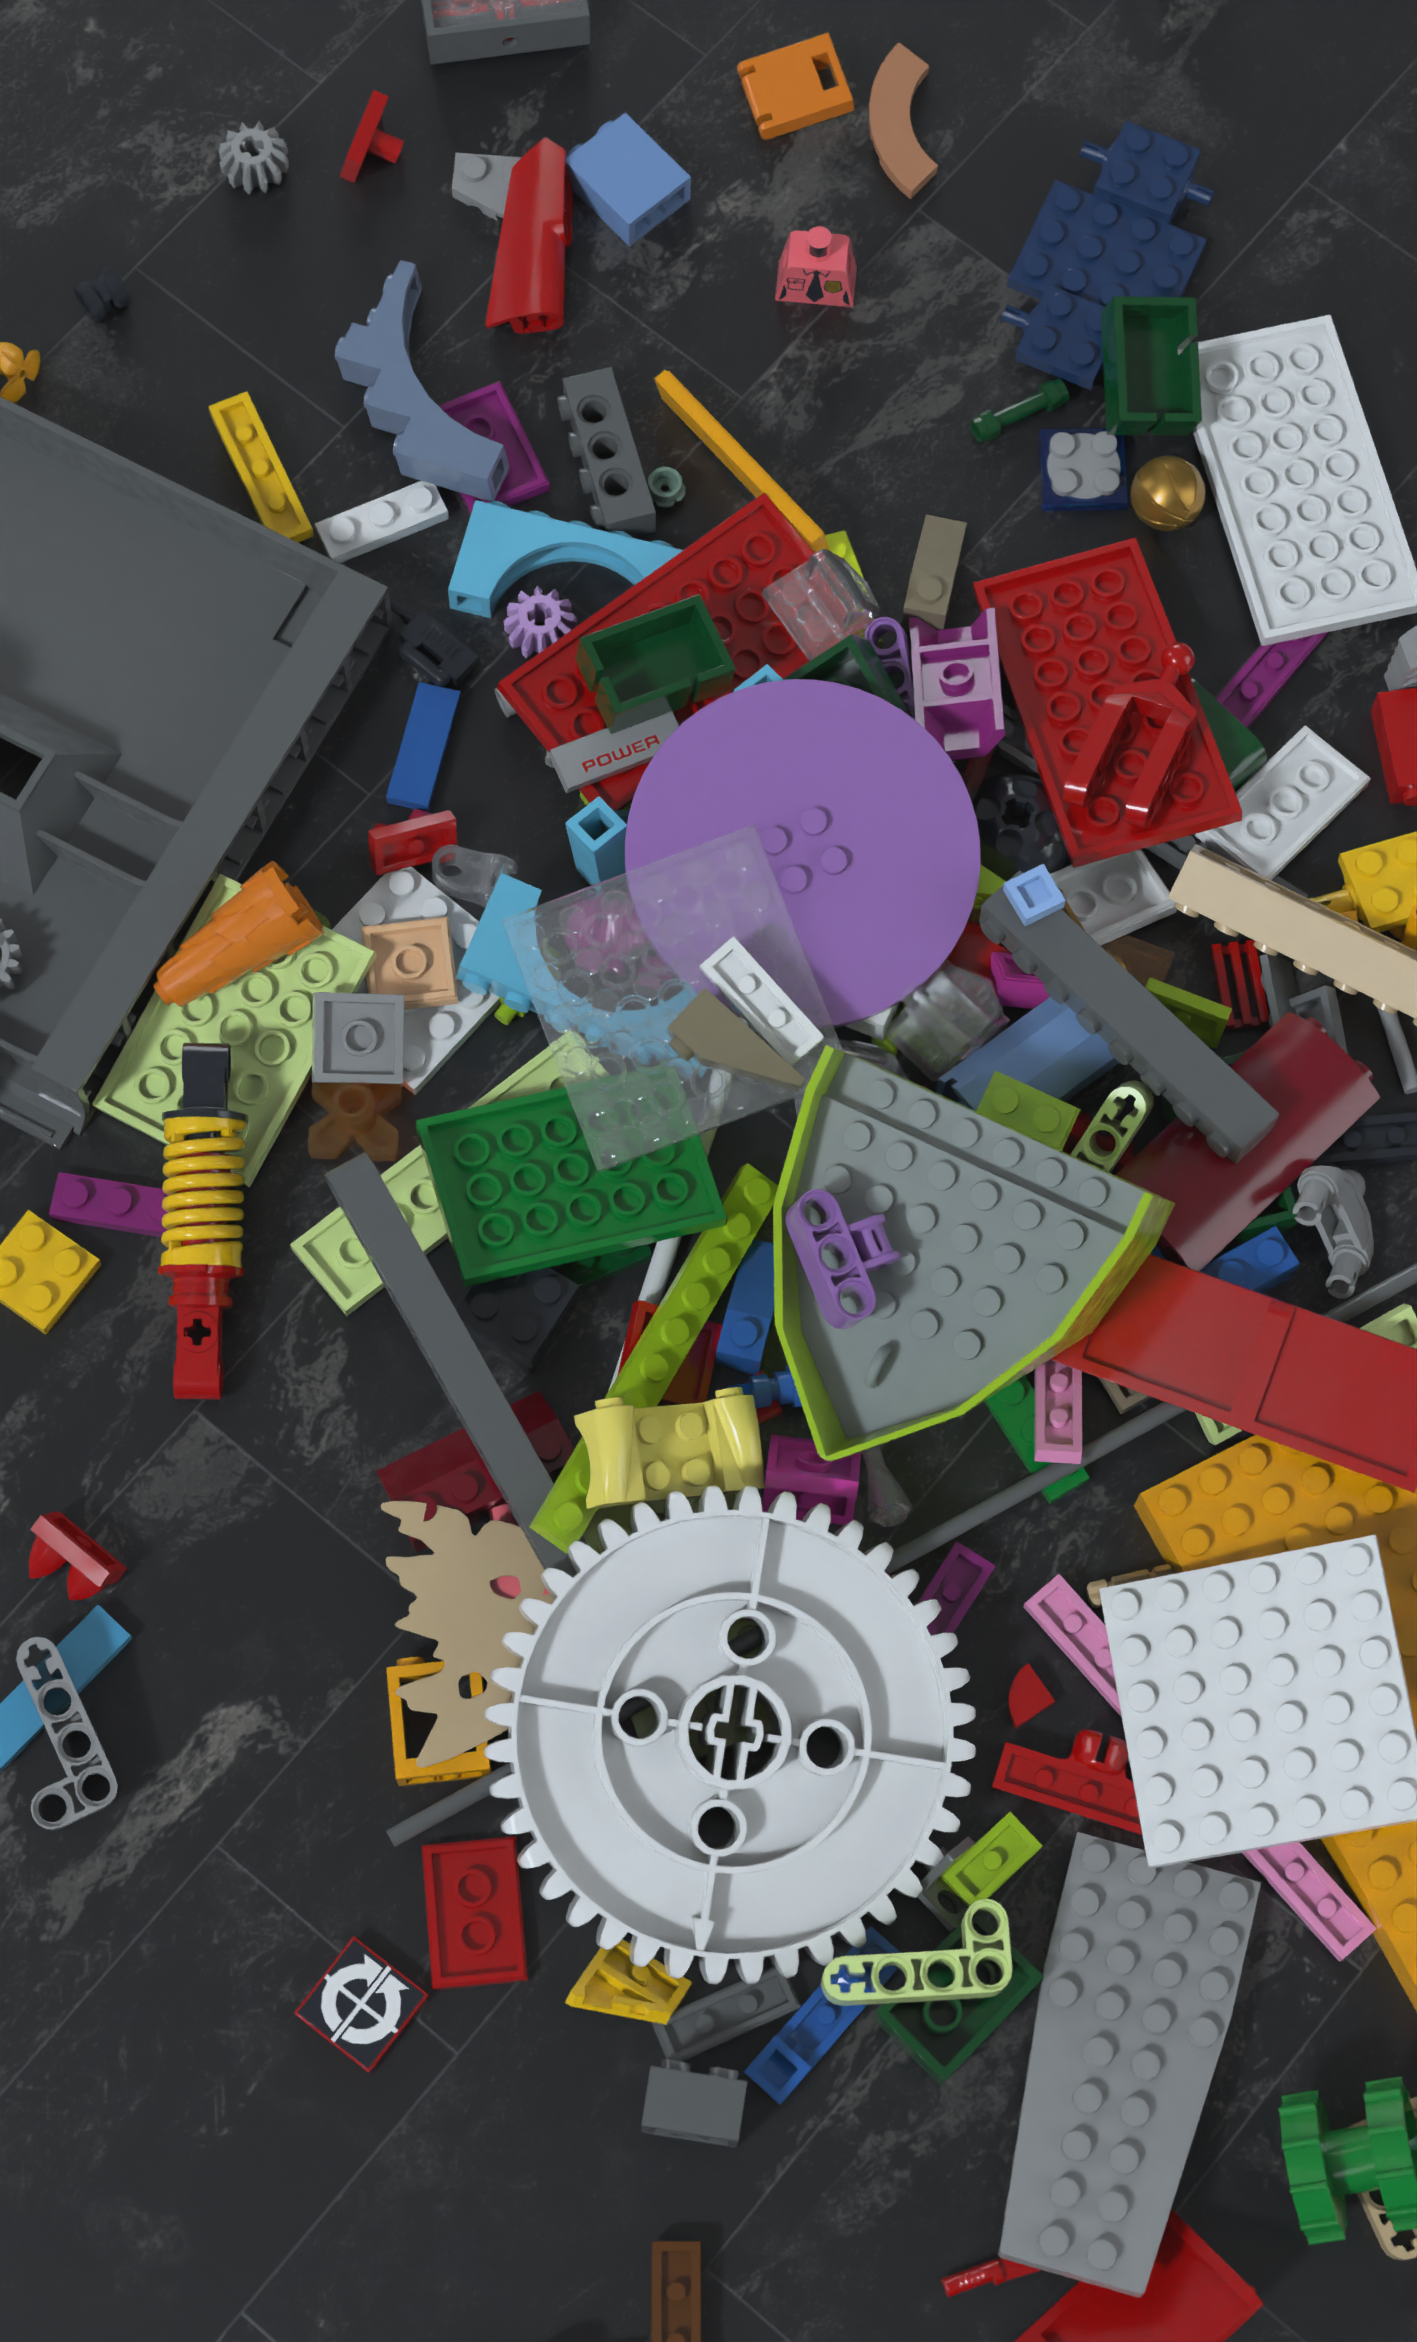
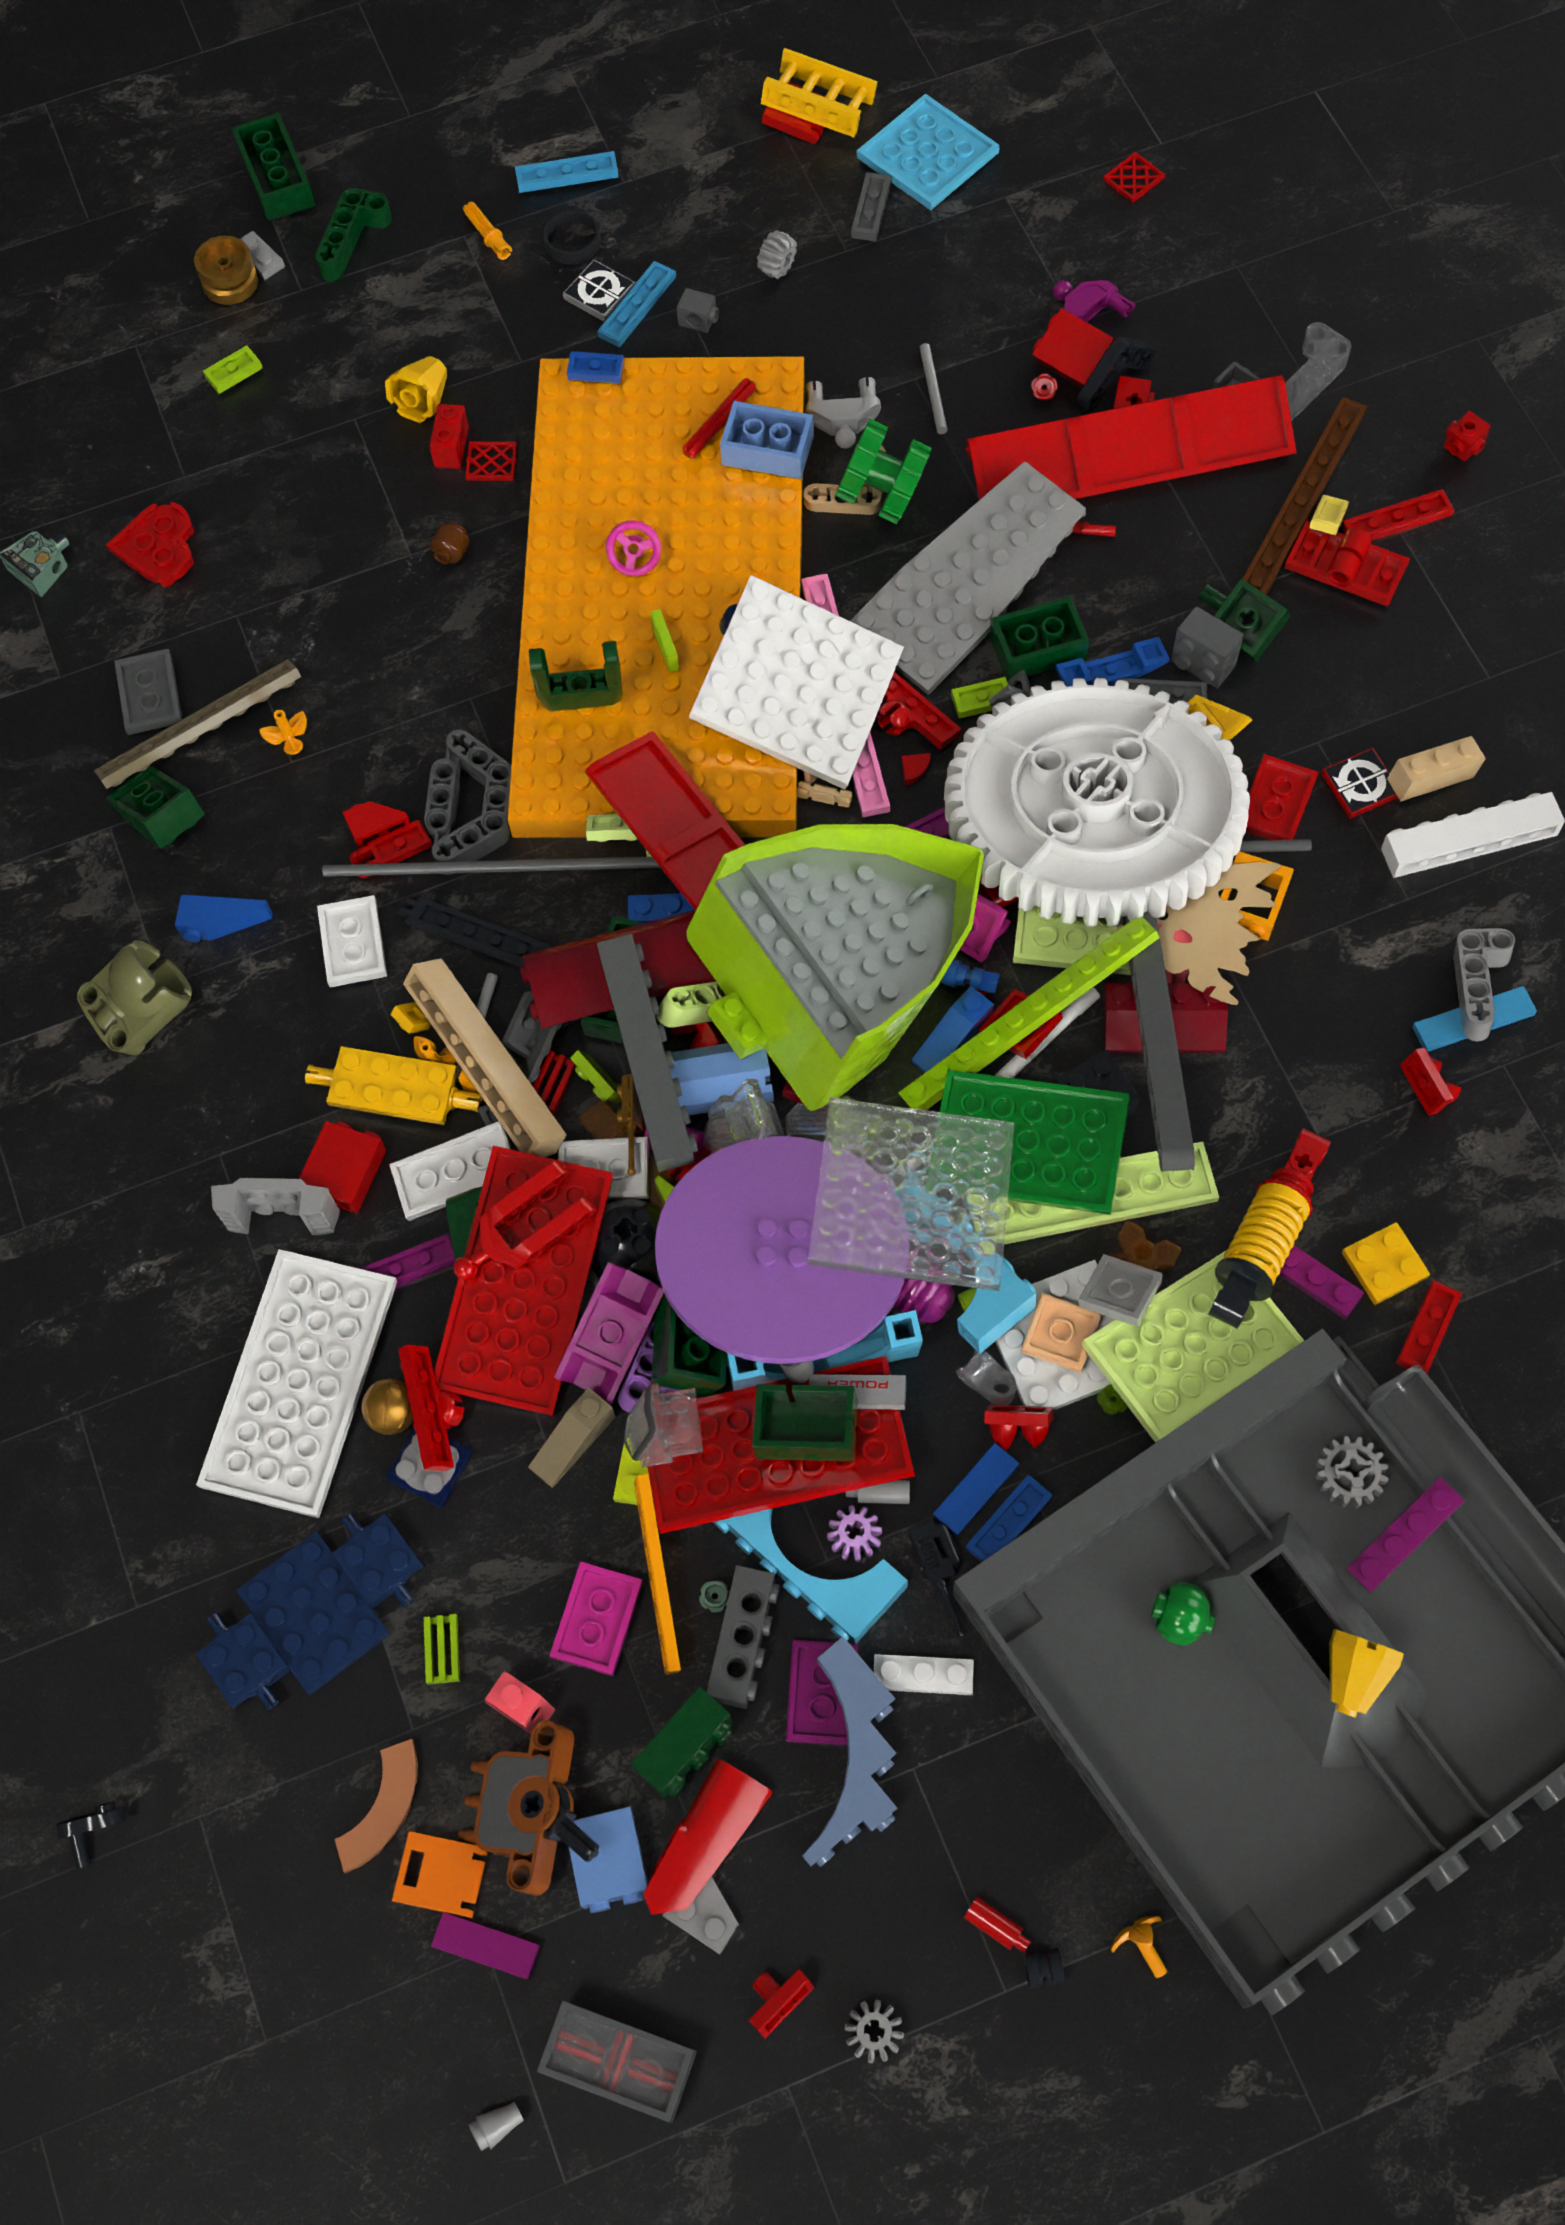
camera: 145 degrees left, 5 degrees down
(108, 703) = (1182, 1614): none -> green plant
(159, 1989) = (1472, 834): none -> white brick
(173, 313) = (996, 1925): none -> red cylinder
(241, 937) = (1165, 1378): orange cone -> none
(255, 2068) = (1436, 768): none -> tan brick
(260, 467) = (991, 1756): yellow plate -> none
(365, 725) = (1010, 1519): none -> blue plate
(606, 303) = (683, 1744): none -> dark green brick
(658, 2192) = (1244, 603): none -> dark green brick
(671, 1448) = (1053, 949): light yellow piece -> none
(704, 51) = (485, 1946): none -> magenta tile
(725, 1043) = (899, 1137): dark tan slope -> none
(737, 169) = (528, 1808): none -> piece
(761, 1002) = (865, 1152): white plate -> none
(784, 399) = (596, 1619): none -> dark pink plate
(859, 1250) = (914, 935): medium lavender piece -> none
(915, 1967) = (1091, 647): yellowish green beam -> none
(920, 268) = (440, 1620): none -> lime tile
(1034, 895) = (659, 1133): light blue plate -> none
(1049, 396) = (416, 1528): dark green bar -> none
(1117, 504) = (431, 1408): none -> red plate
(1143, 373) = (345, 1490): dark green piece -> none
(1336, 1206) = (590, 909): light grey connector -> none

